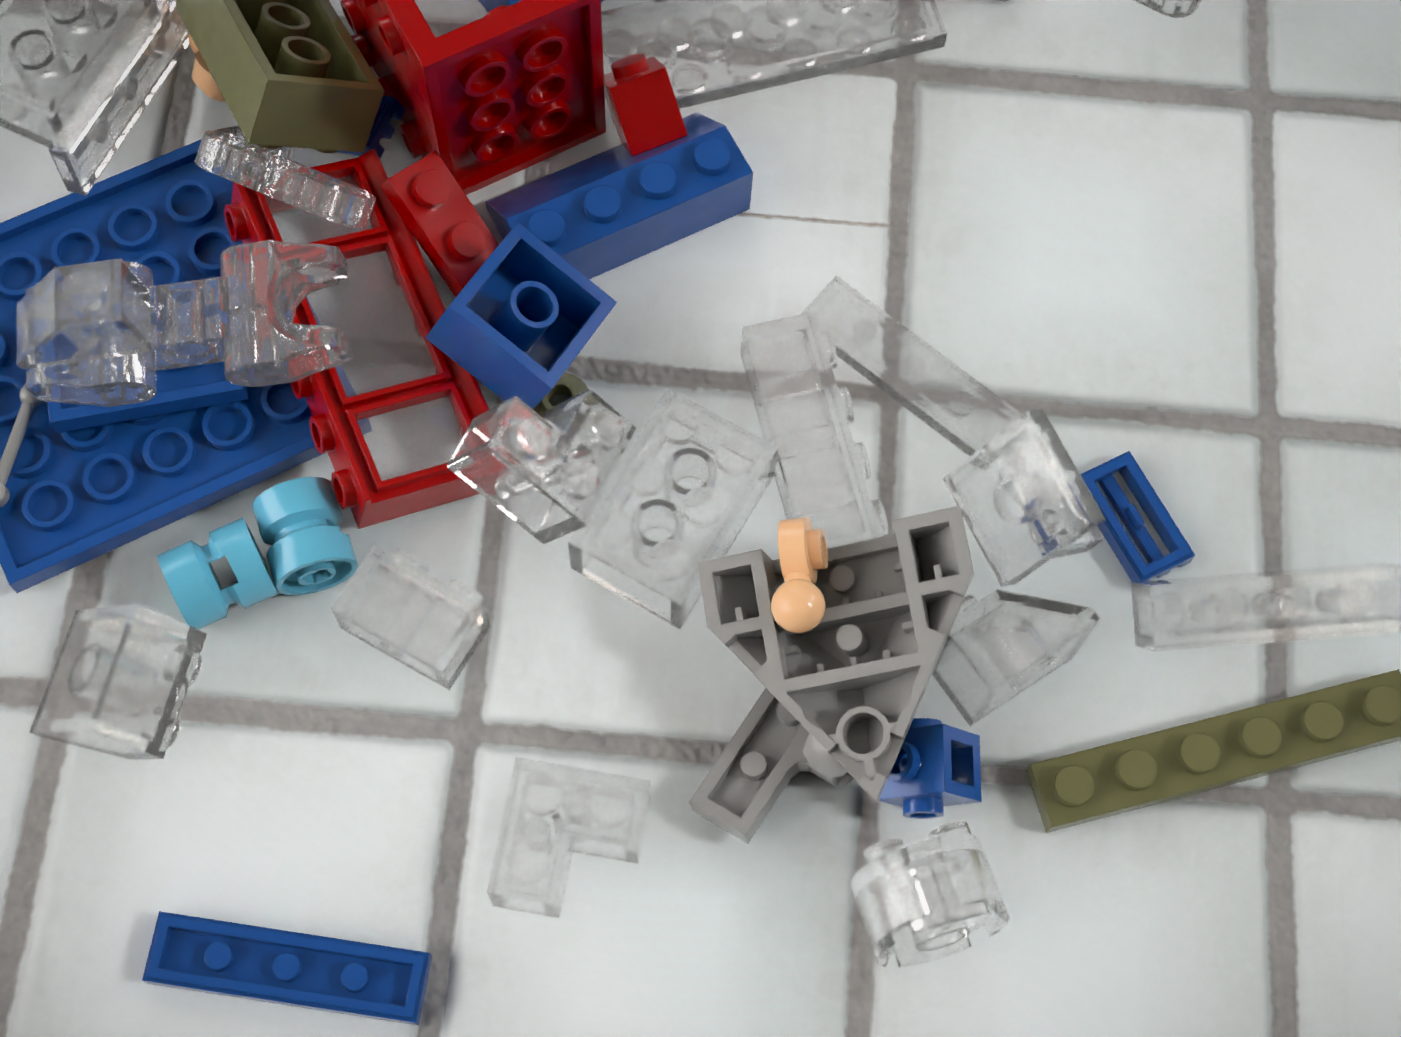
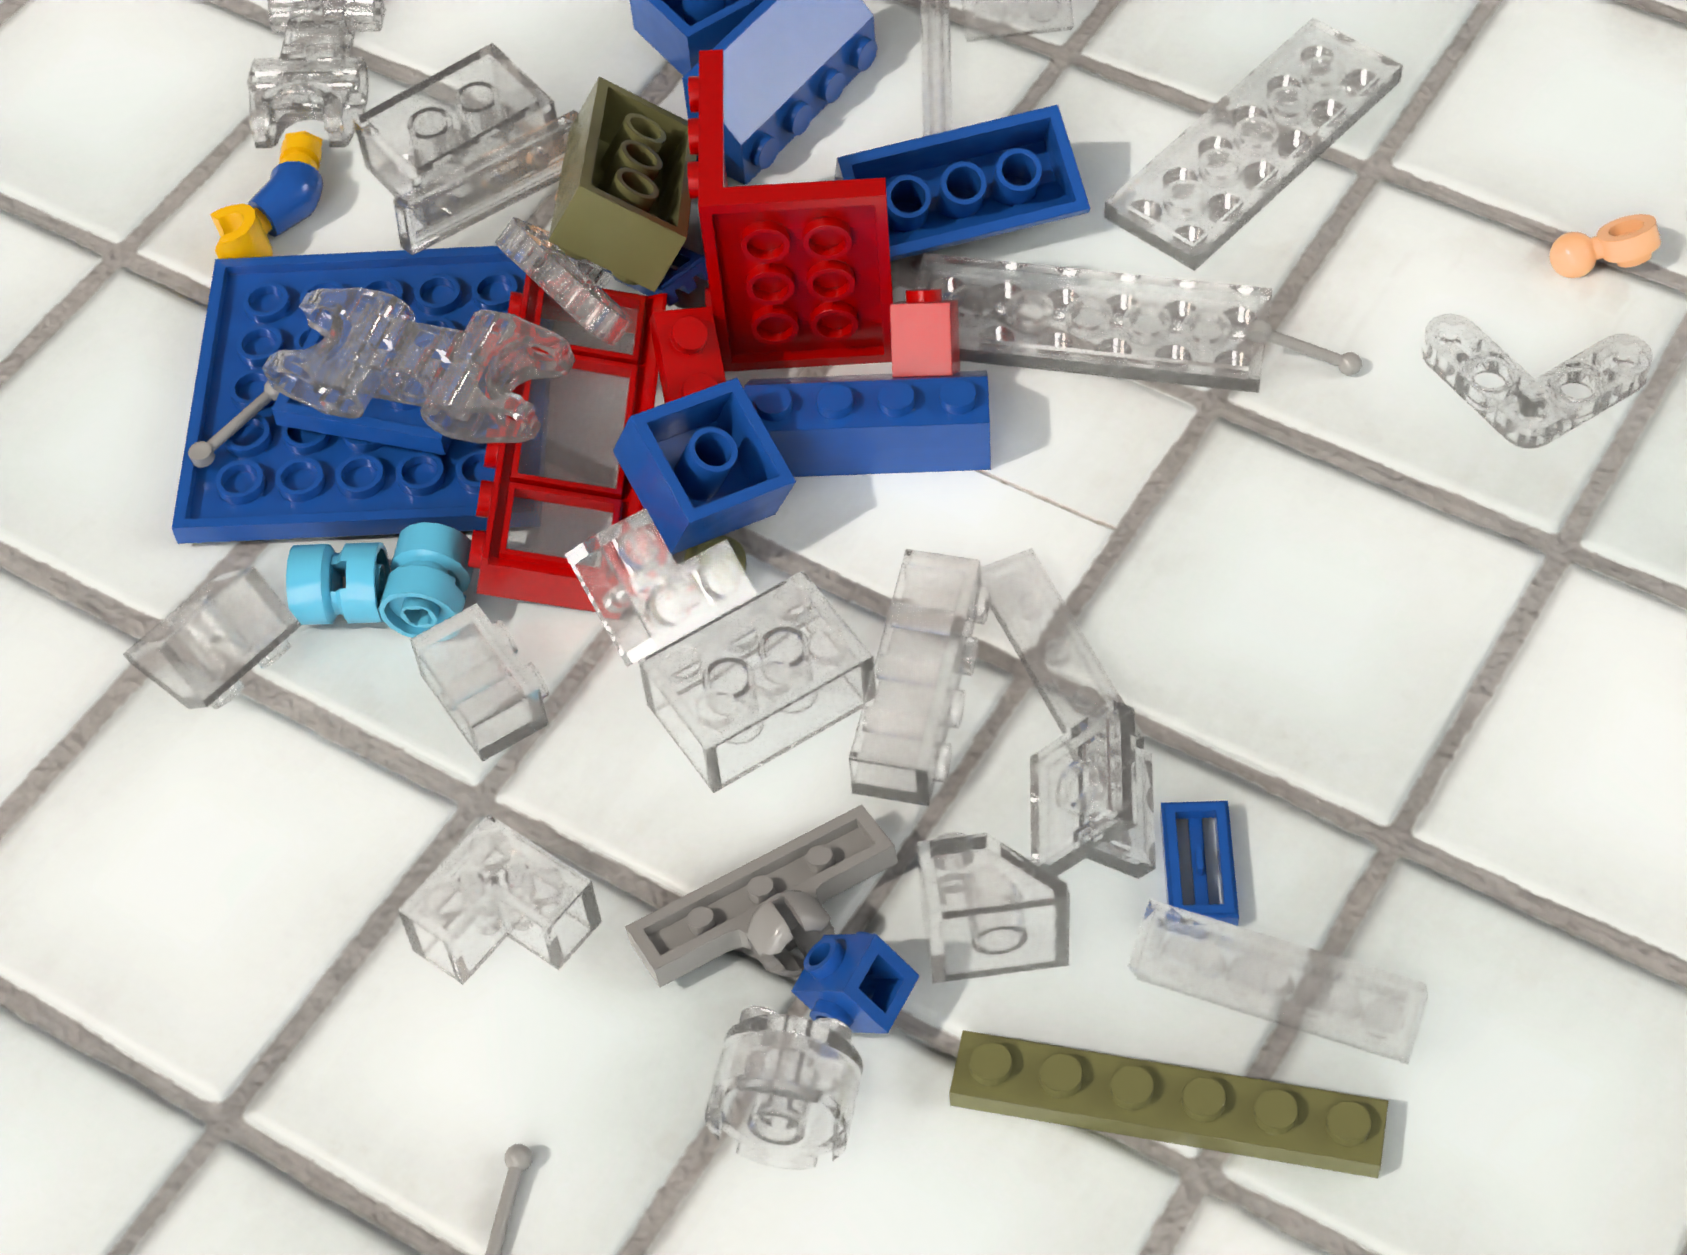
camera: 35 degrees right, 15 degrees down
(83, 315) = (334, 319): clear slope -> none
(288, 968) = (214, 923): blue tile -> none
(802, 552) = (826, 744): light nougat plate -> none
(874, 650) = (828, 822): light grey wedge -> none

